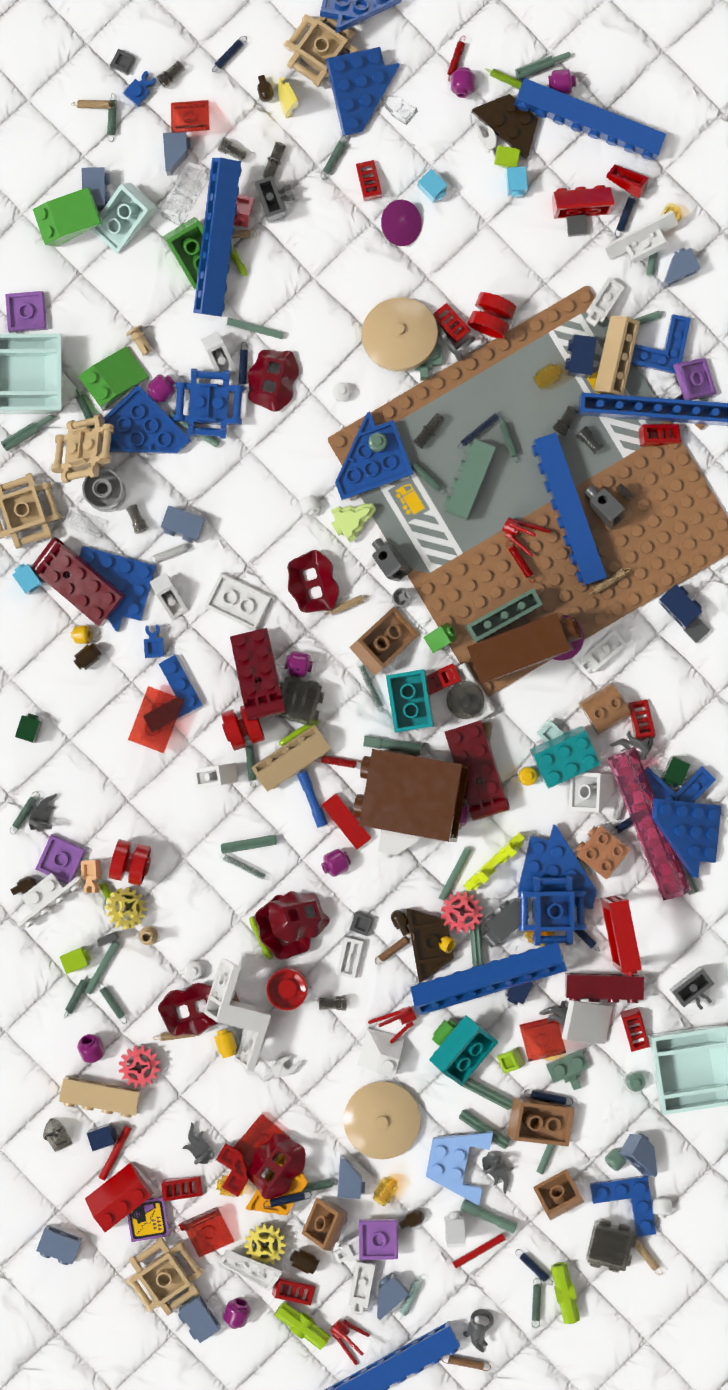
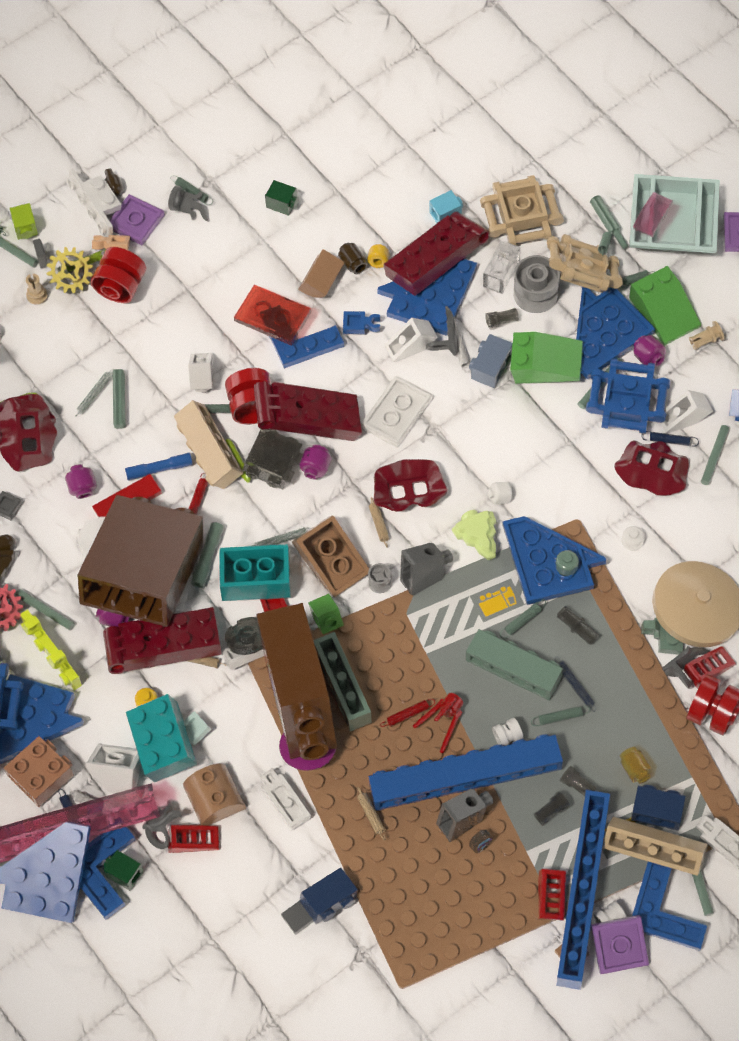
camera: 100 degrees right, 25 degrees down
(30, 390) = (652, 214): none -> clear pink slope
(55, 433) = (605, 242): none -> sand green piece
(107, 682) = (321, 275): none -> medium nougat brick
(171, 561) = (451, 343): none -> dark grey piece
(178, 475) = (545, 358): none -> bright green slope
(530, 484) = (507, 732): none -> white wheel

